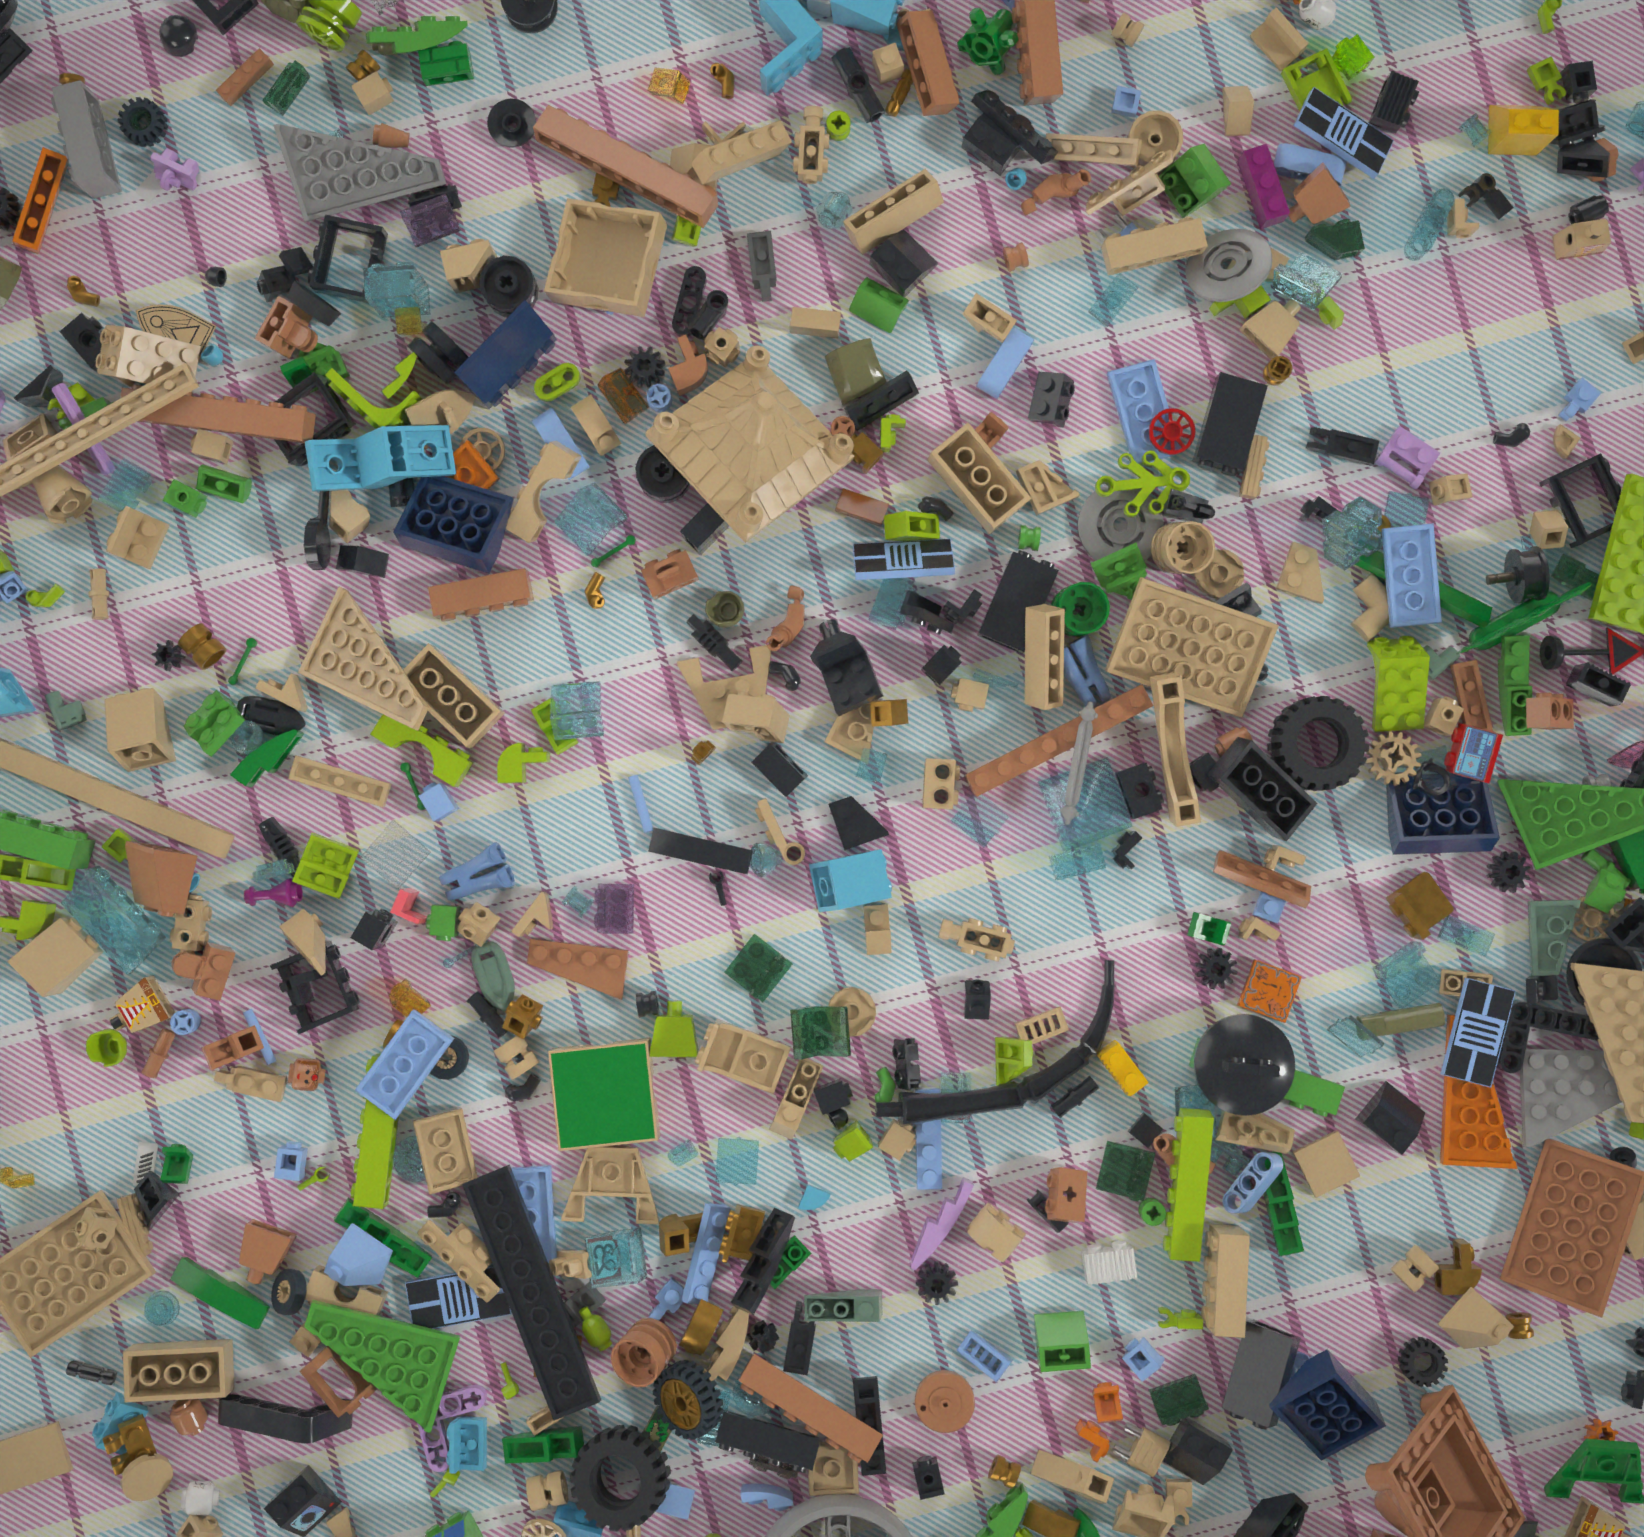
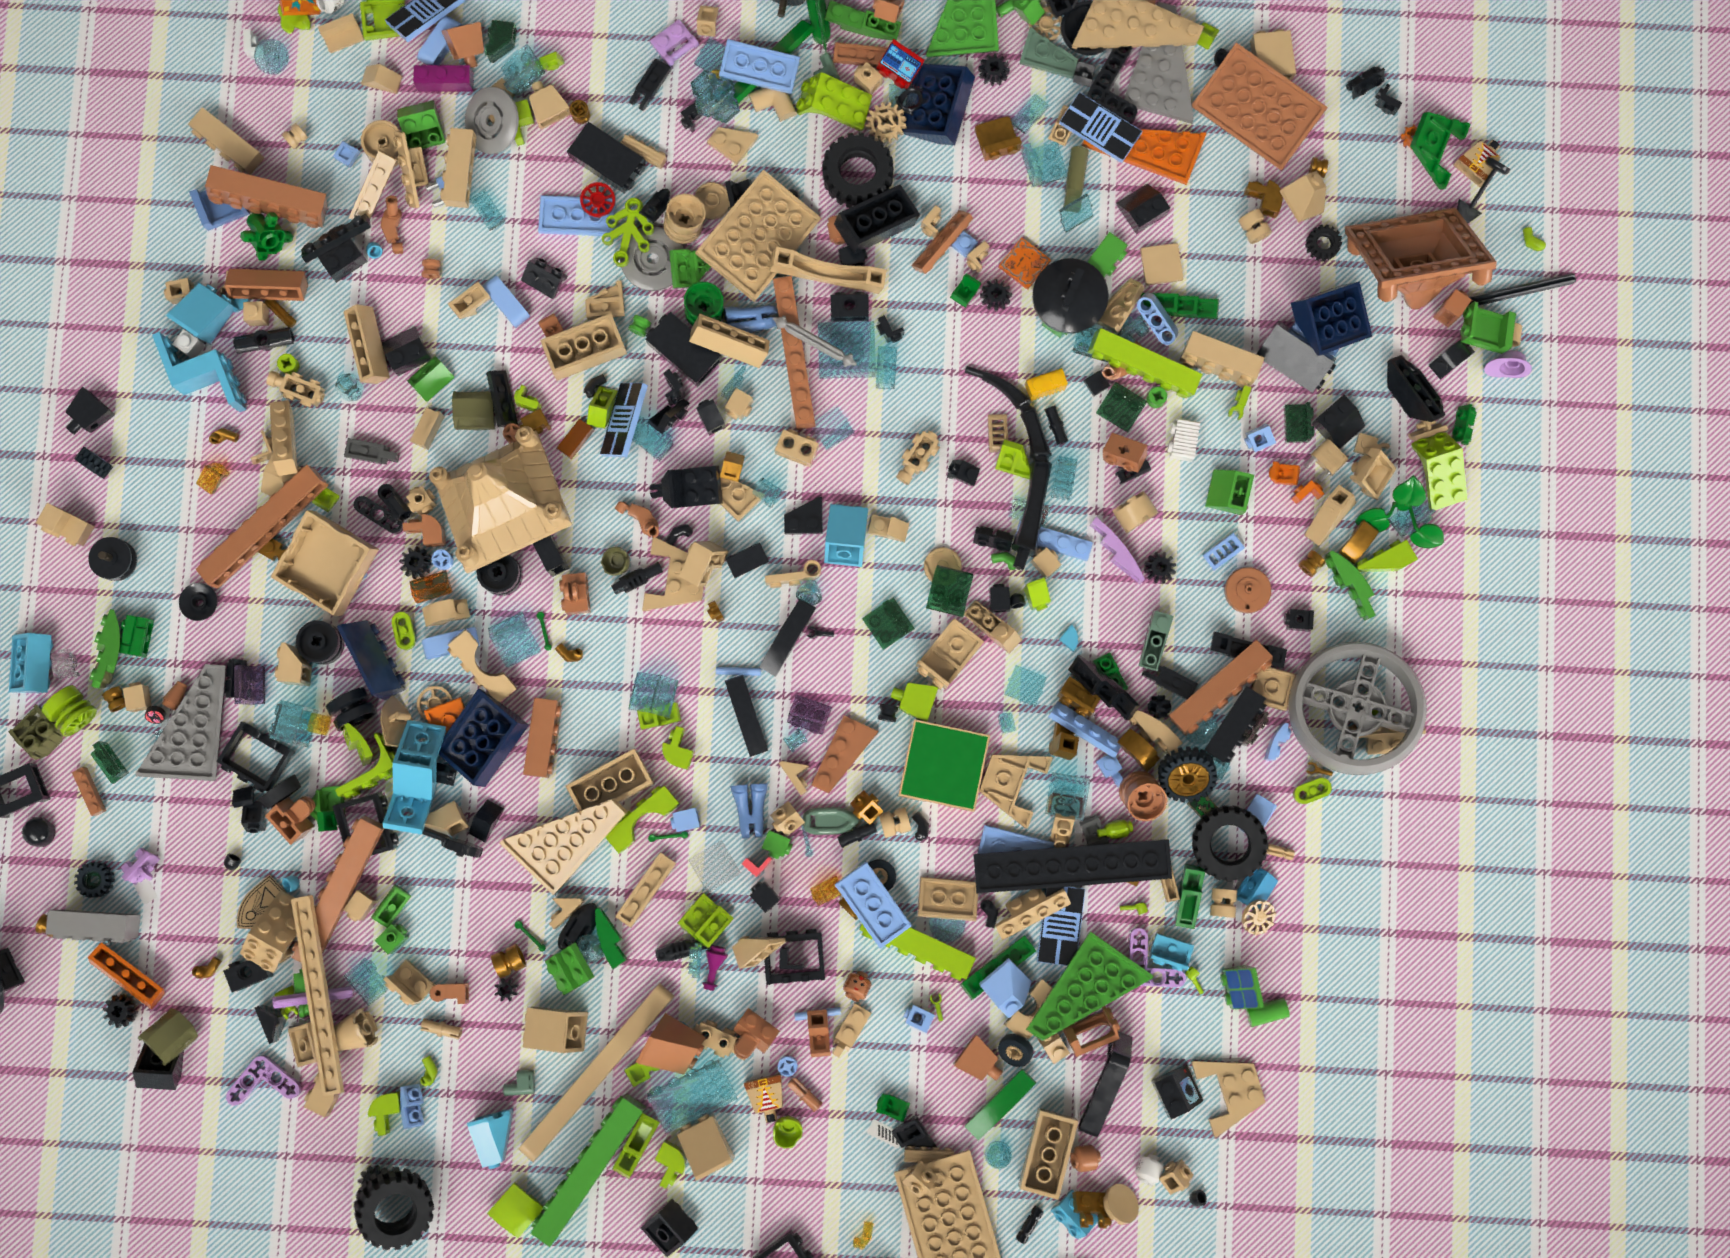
camera: 75 degrees left, 5 degrees down
(145, 589) = (450, 991): none -> nougat leg
(360, 121) = (155, 714): none -> black tile
(588, 832) = (746, 715): none -> black slope
(1010, 1128) = (1064, 478): none -> clear light blue brick

